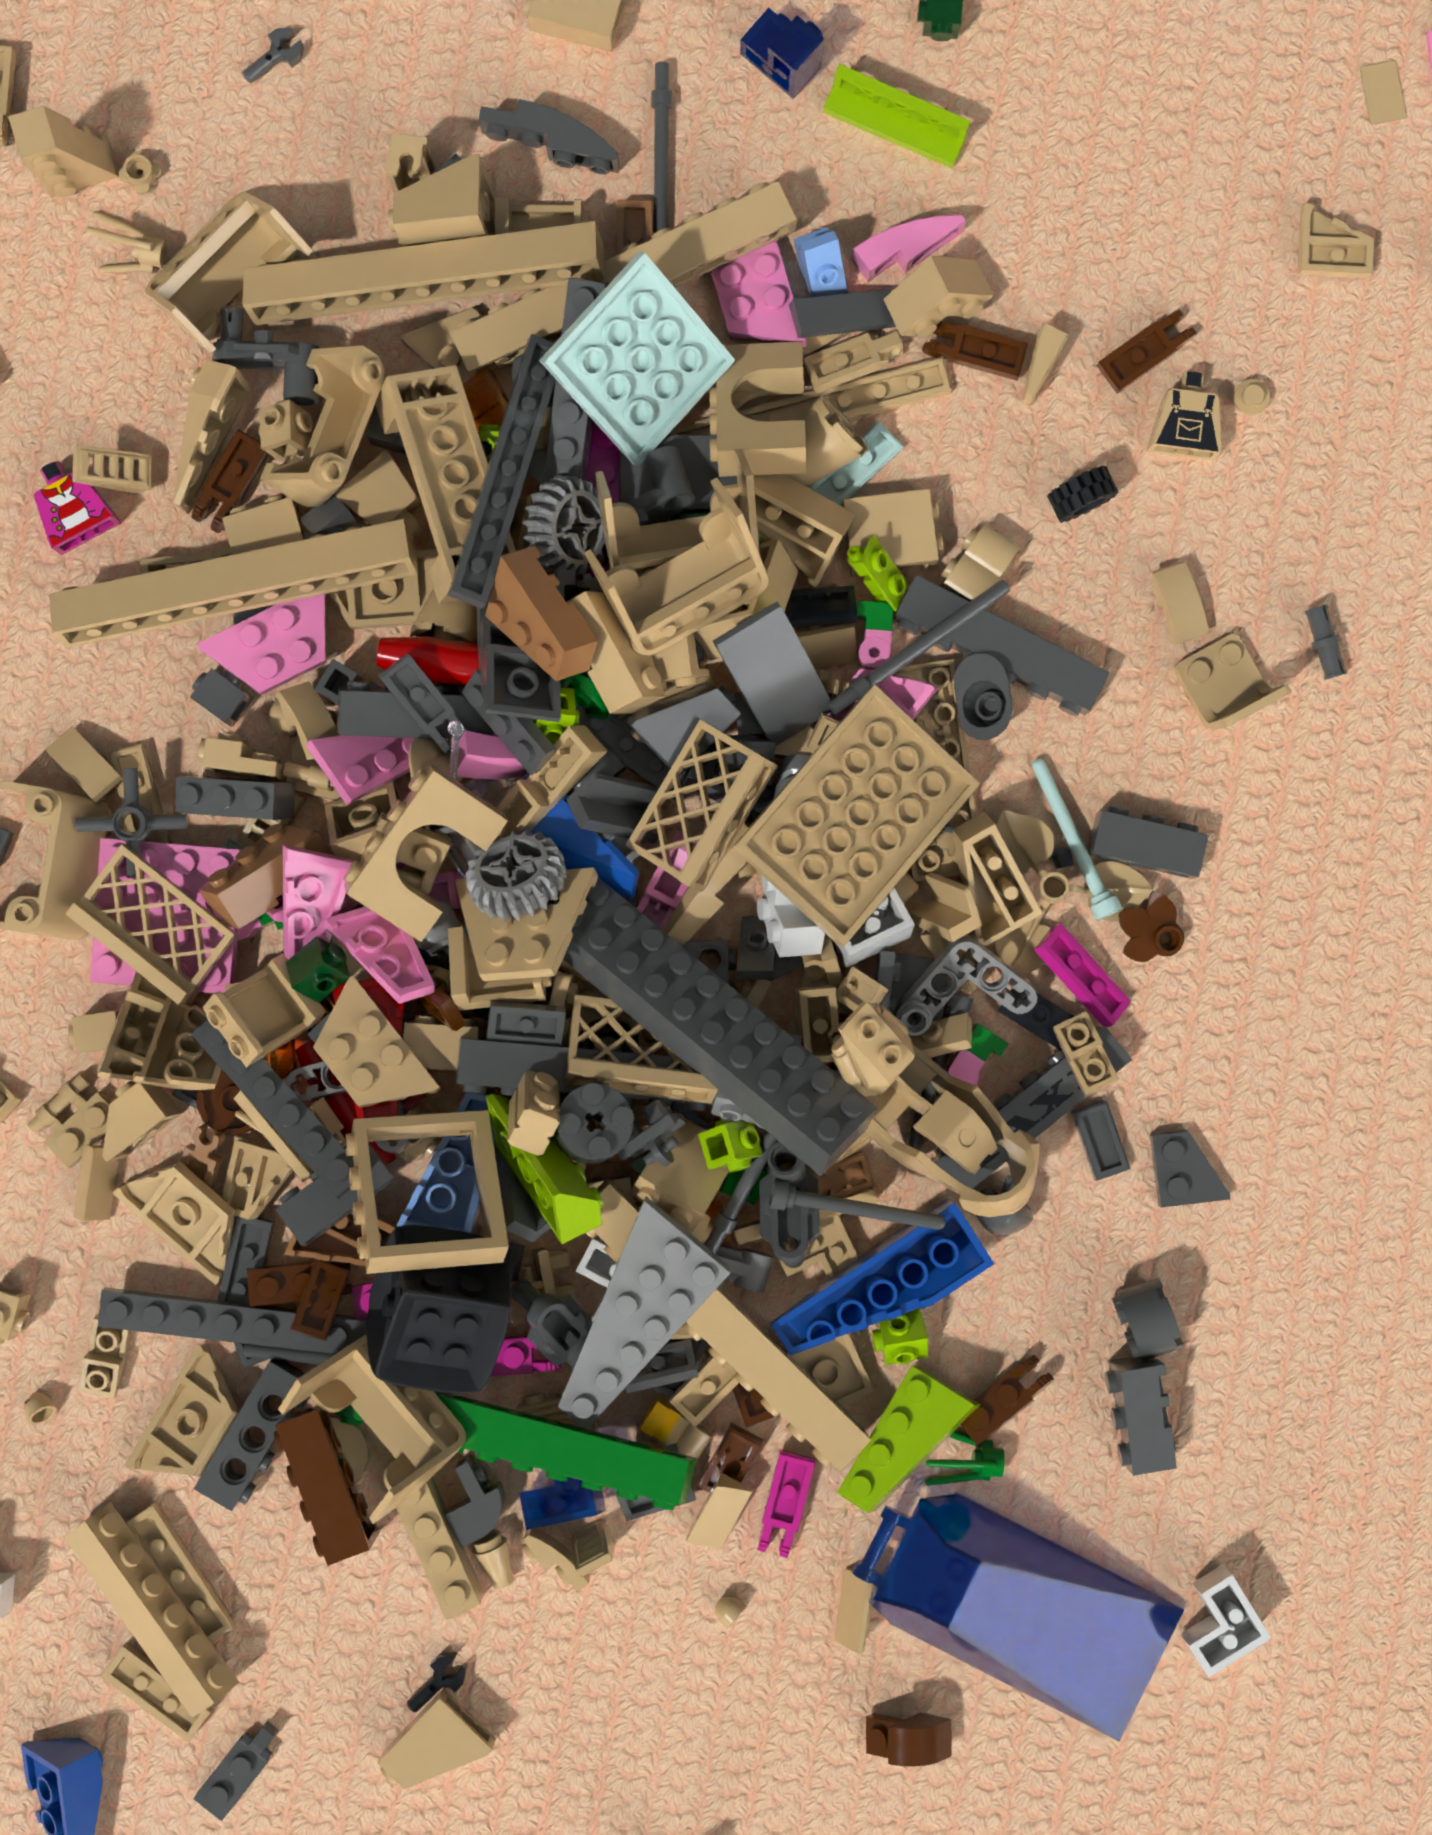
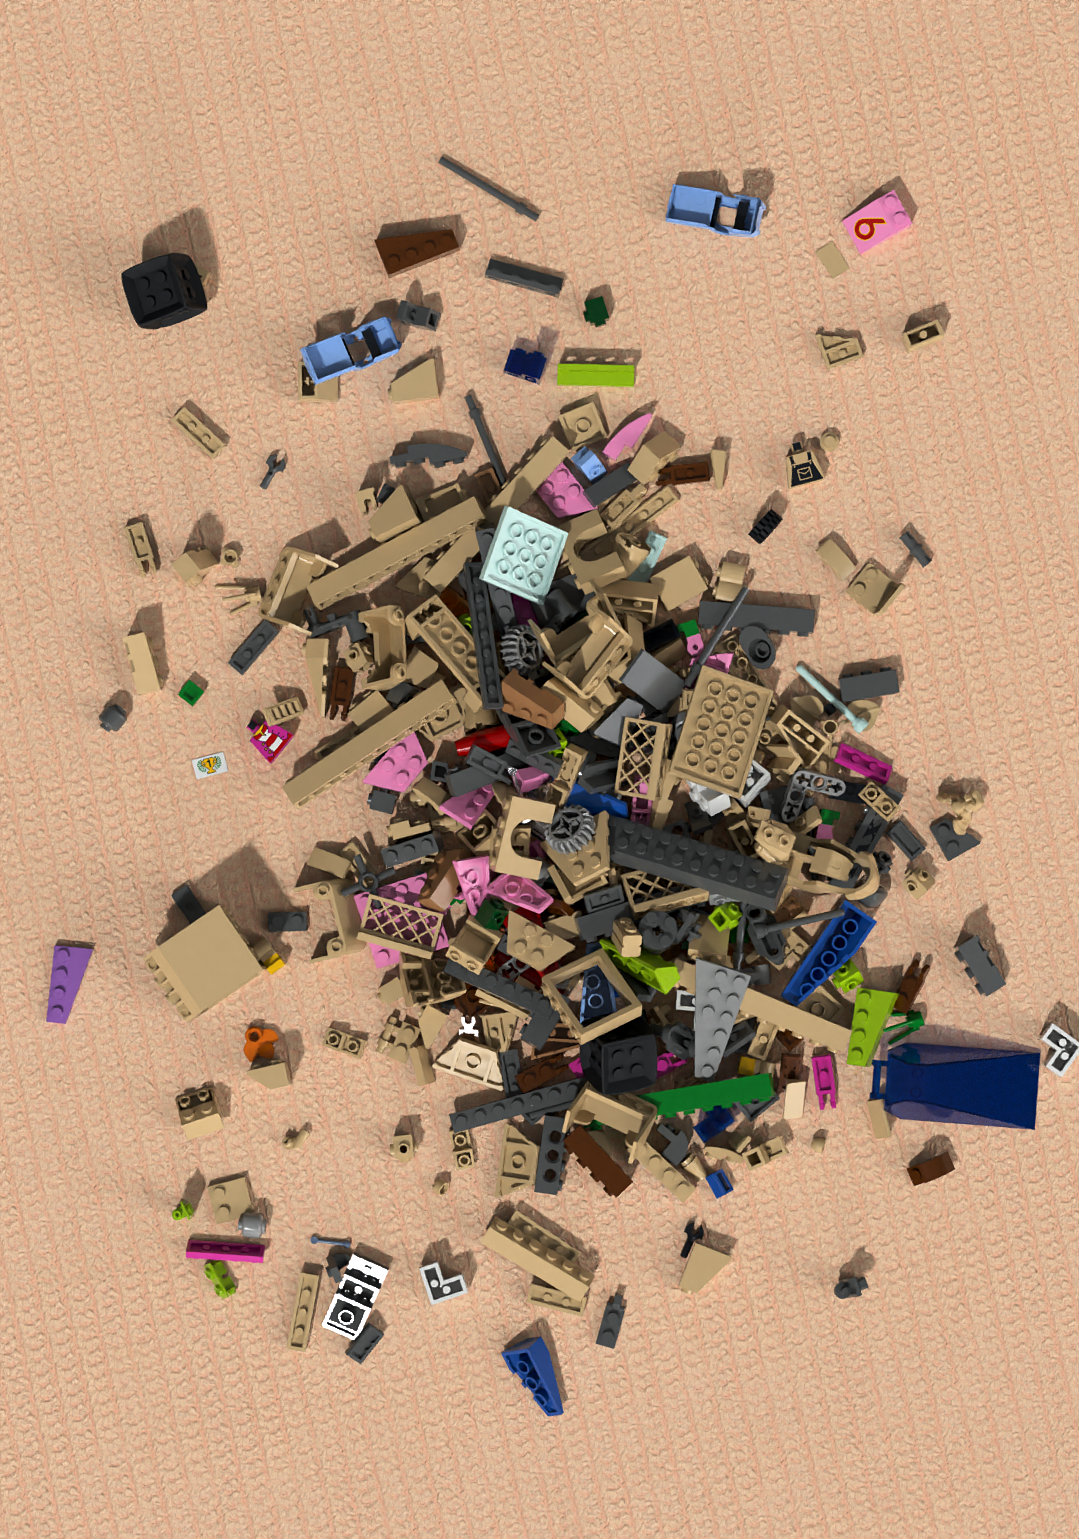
camera: 20 degrees left, 0 degrees up
(113, 340) = (253, 647): none -> dark grey plate
(320, 1300) = (557, 1075): reddish brown plate -> none
(526, 1606) = (719, 1183): none -> blue piece
(625, 1586) = (765, 1152): none -> tan brick
(837, 195) = (582, 426): none -> tan plate
(884, 578) = (681, 607): lime hinge -> none
(917, 1026) = (794, 817): light grey plate -> none
(1050, 1161) = (883, 862): none -> dark grey gear
(1094, 1222) = (917, 881): none -> tan brick
(1143, 352) = (766, 442): reddish brown hinge -> none
(1146, 927) = (885, 726): reddish brown plate -> none
(1150, 1320) = (963, 918): dark grey brick -> none
(1227, 1122) = (962, 807): none -> tan animal

